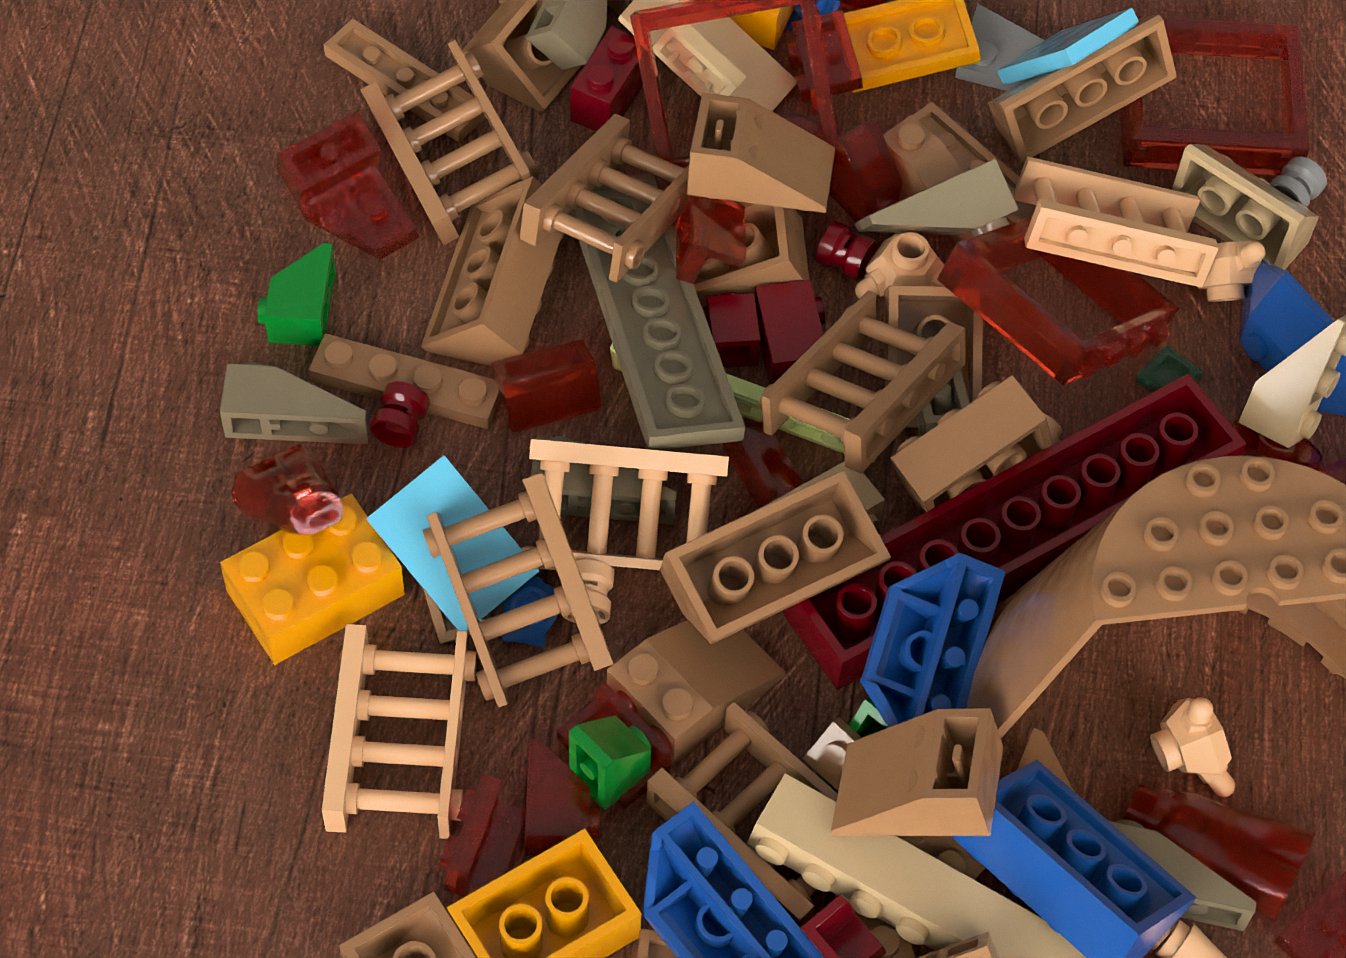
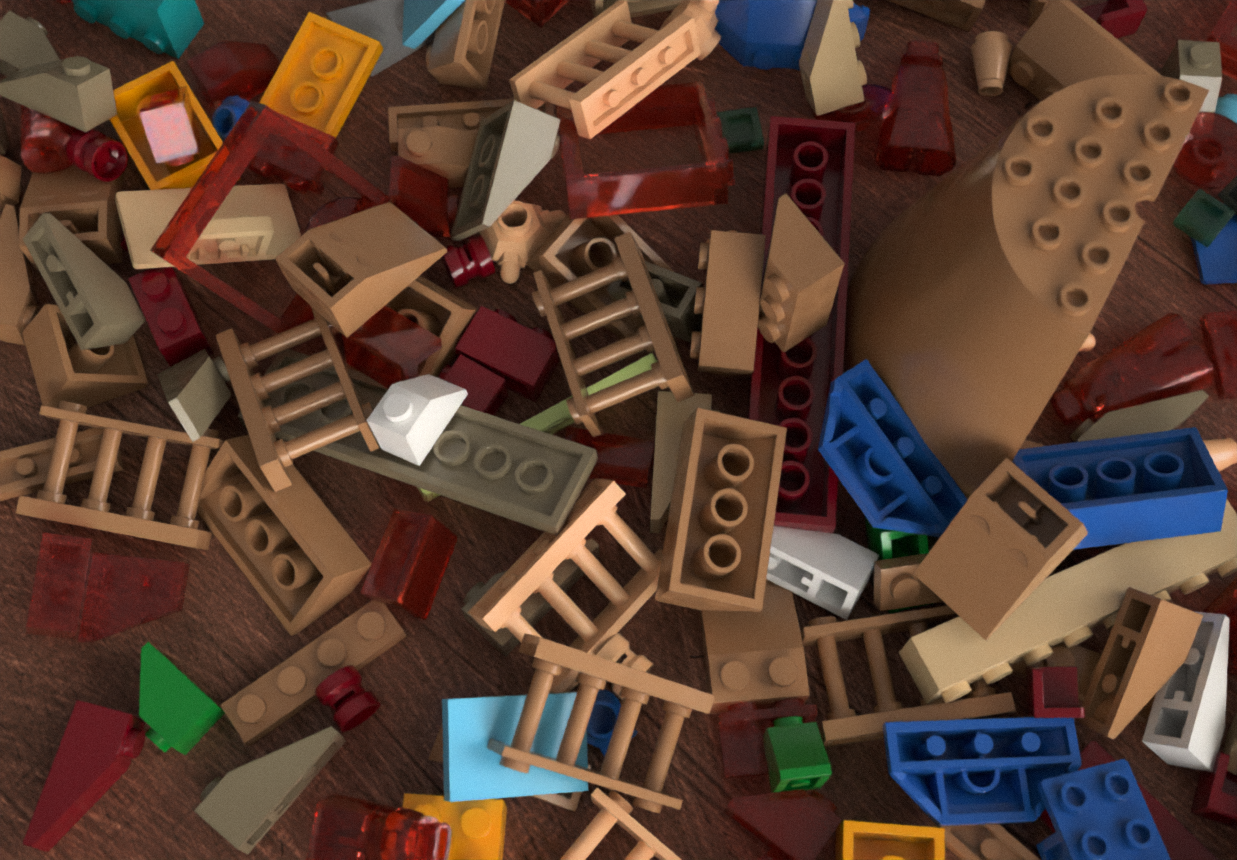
camera: 50 degrees left, 10 degrees up
(203, 278) = (86, 765): none -> dark red slope
(550, 130) = (196, 391): none -> dark tan slope
(664, 284) = (414, 415): none -> white slope
(798, 679) = (820, 567): none -> white slope
(1015, 460) = (797, 280): none -> medium nougat slope

